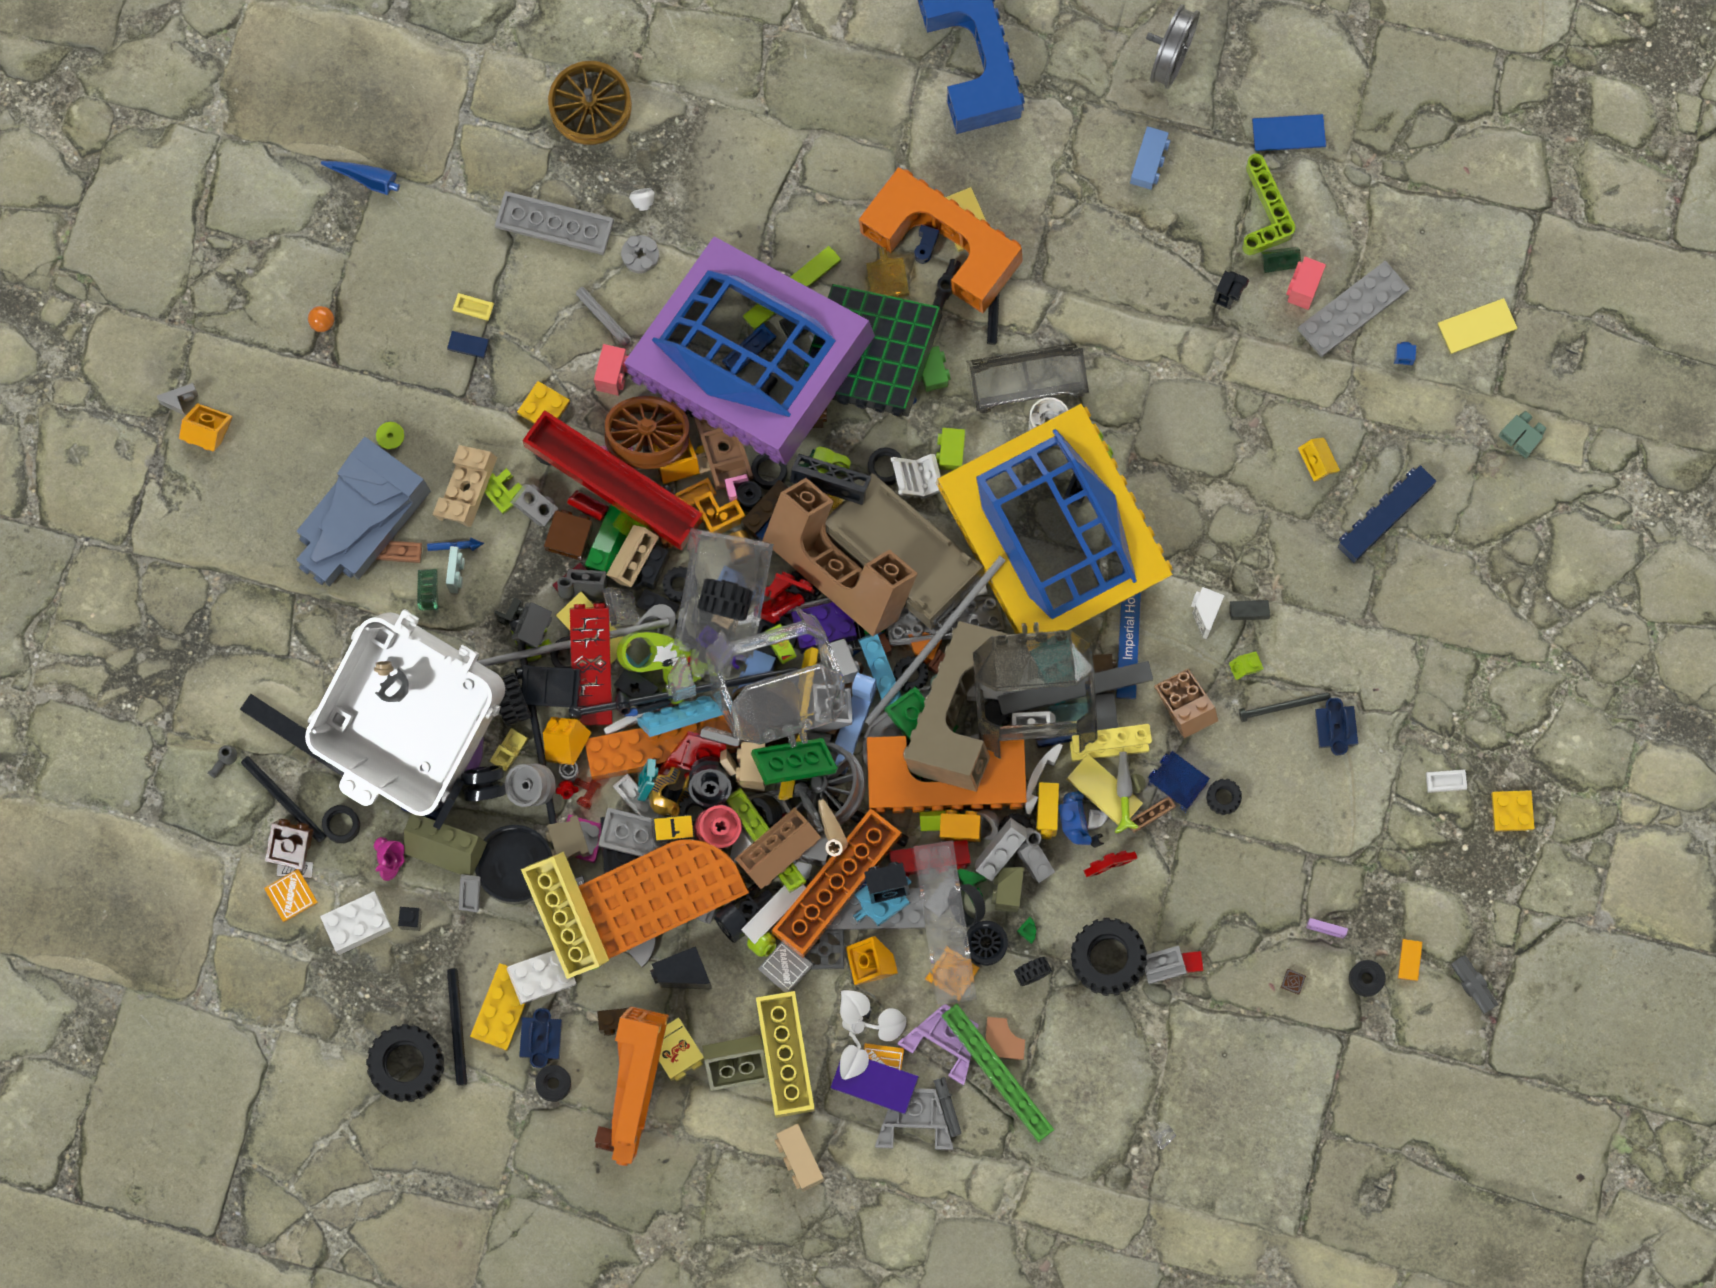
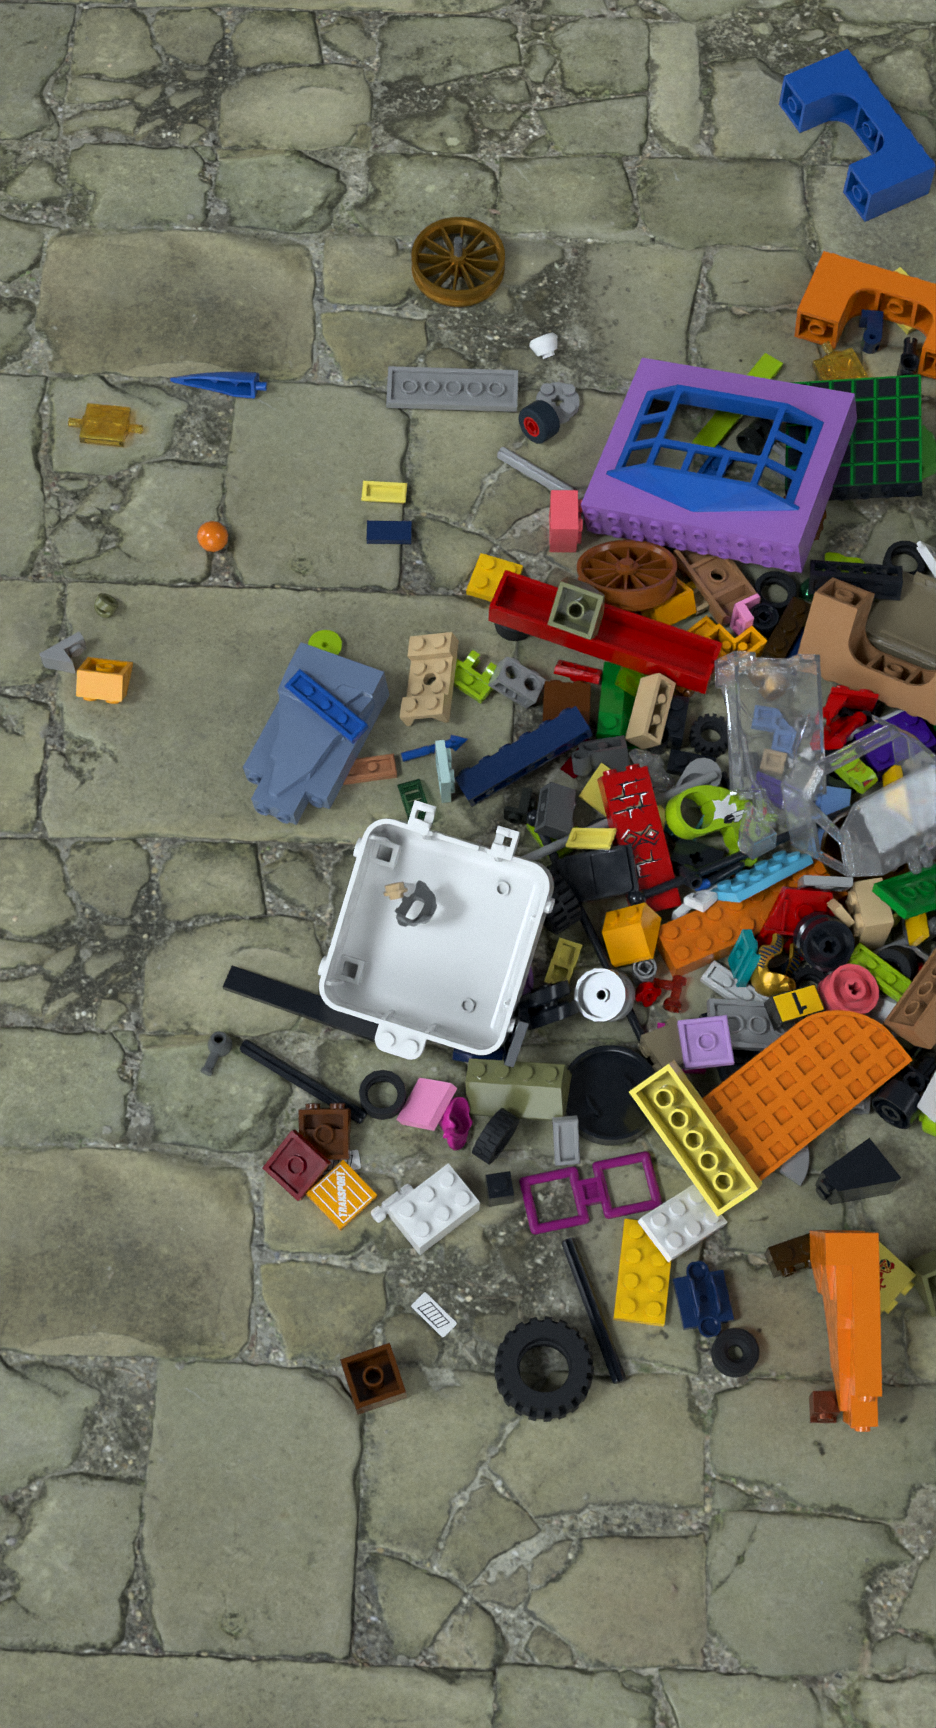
camera: 15 degrees left, 10 degrees down
(221, 361) = (106, 603): none -> olive tile
(257, 194) = (105, 425): none -> clear yellow plate
(261, 865) = (296, 1165): none -> dark red plate
(278, 1041) = (373, 1378): none -> reddish brown brick
(315, 915) = (380, 1213): none -> white axle
(337, 1002) = (433, 1314): none -> white sticker
(370, 498) = (326, 706): none -> blue tile
(371, 840) = (426, 1104): none -> bright pink tile
(416, 878) = (495, 1136): none -> black tyre
(479, 936) = (590, 1192): none -> magenta bar
(520, 571) = (523, 756): none -> dark blue brick
(551, 656) = (591, 838): none -> light yellow tile
(590, 460) = (577, 608): none -> olive slope
(593, 842) = (705, 1042): none -> lavender tile
(616, 271) = (539, 421): none -> black wheel
(626, 726) = (701, 901): none -> white tile
(725, 599) = (780, 728): black wheel -> none

